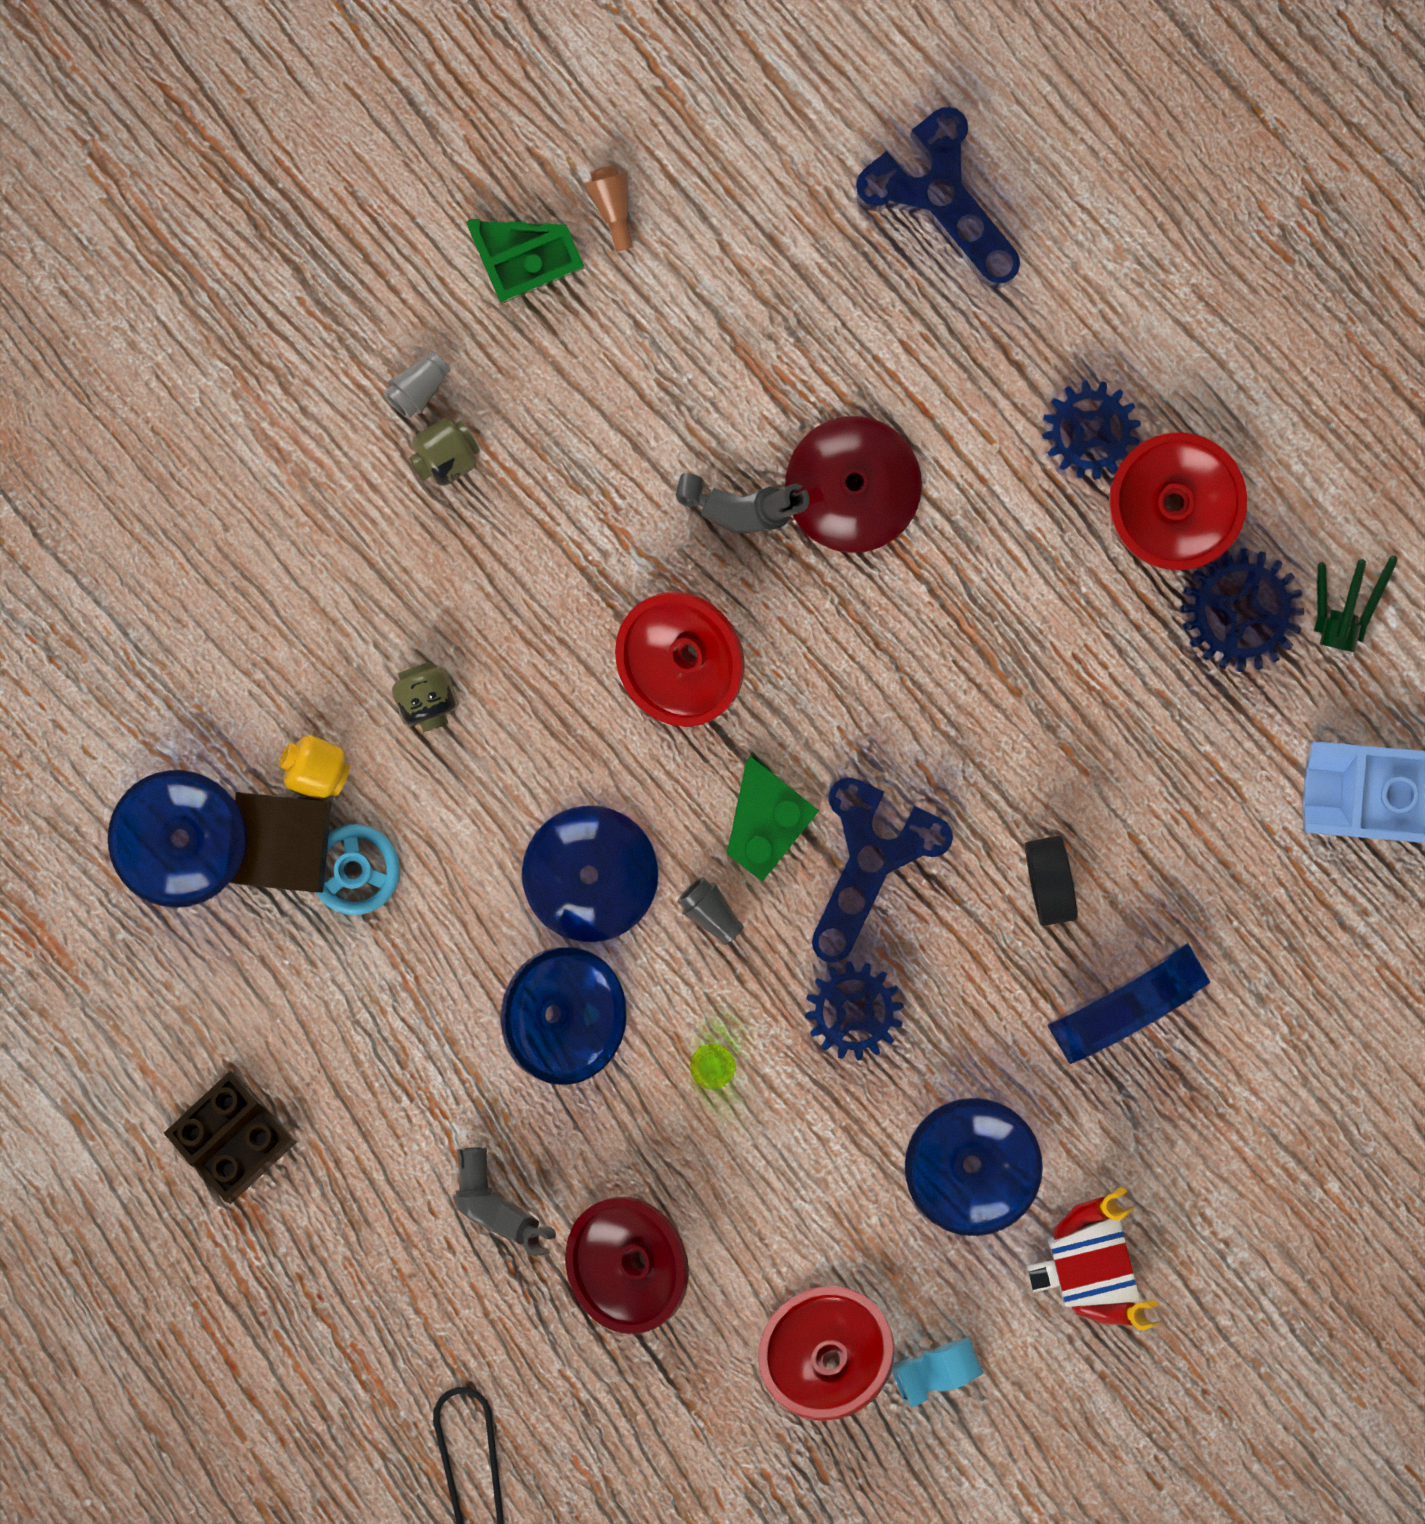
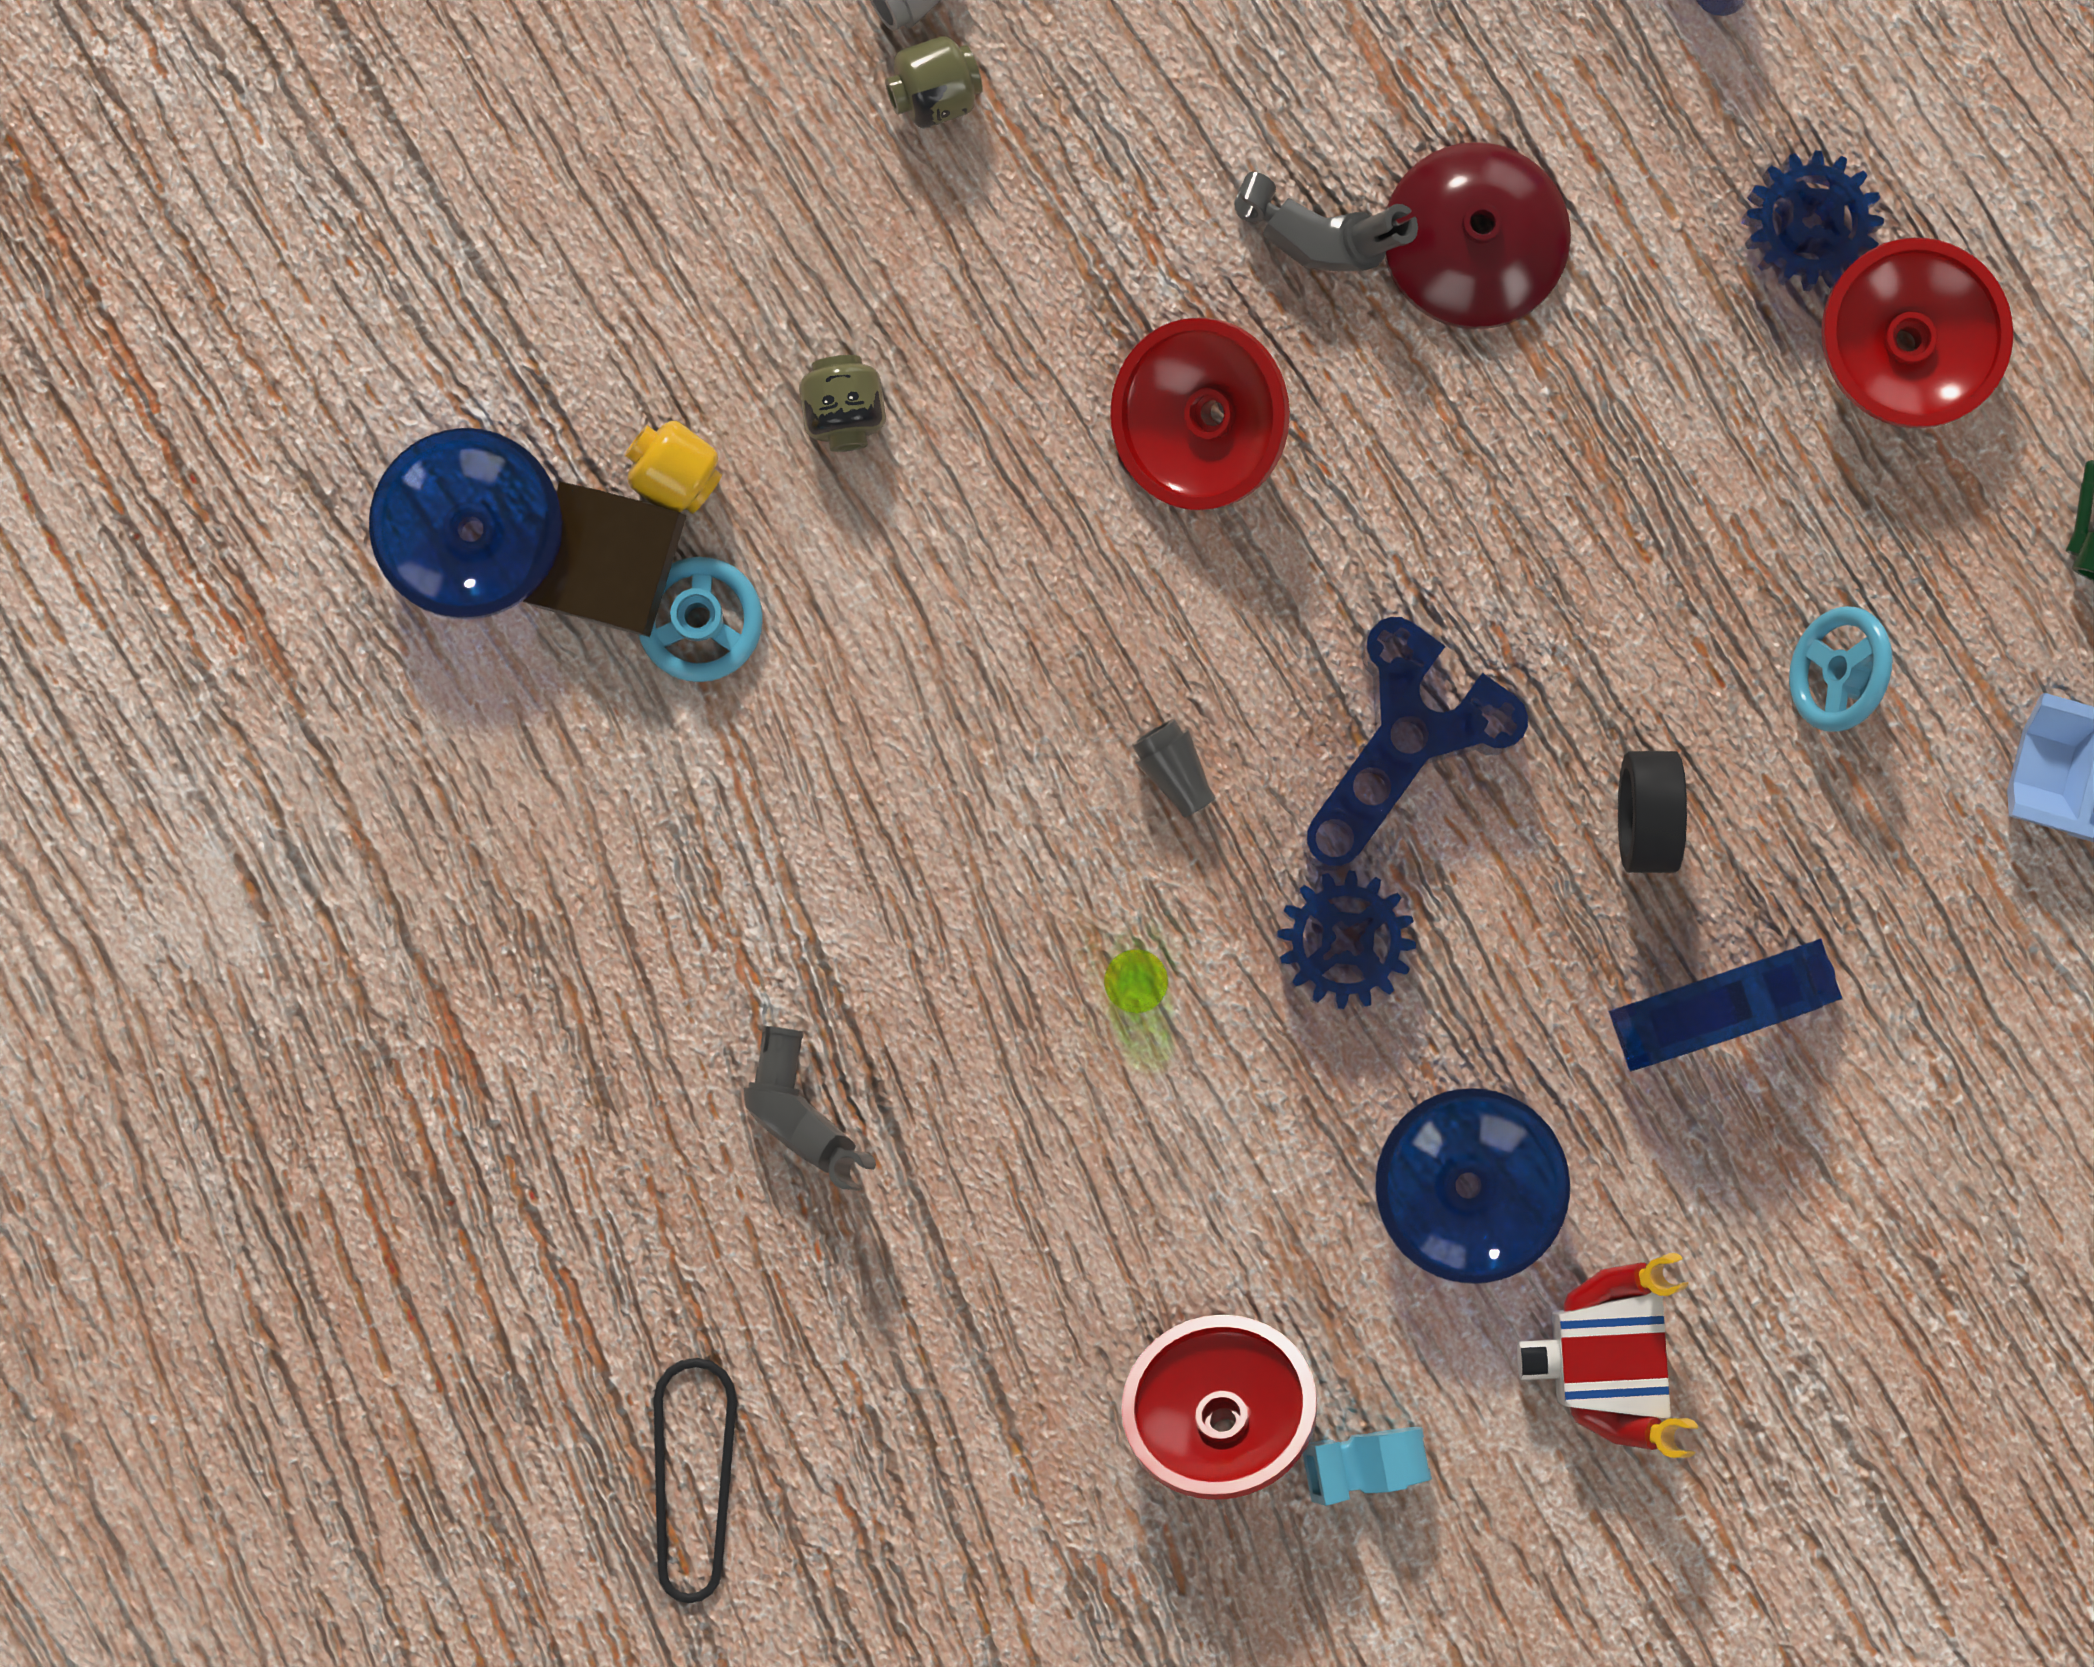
camera: 10 degrees right, 5 degrees down
(230, 1137) = (454, 950): dark brown slope -> none
(585, 1018) = (976, 873): clear blue dish -> none
(607, 1267) = (937, 1235): dark red dish -> none
(624, 867) = (1027, 732): clear blue dish -> none
(766, 820) = (1273, 660): green wing -> none
(1172, 753) = (1854, 674): none -> medium azure piece
(1233, 631) = (1998, 509): clear blue gear -> none

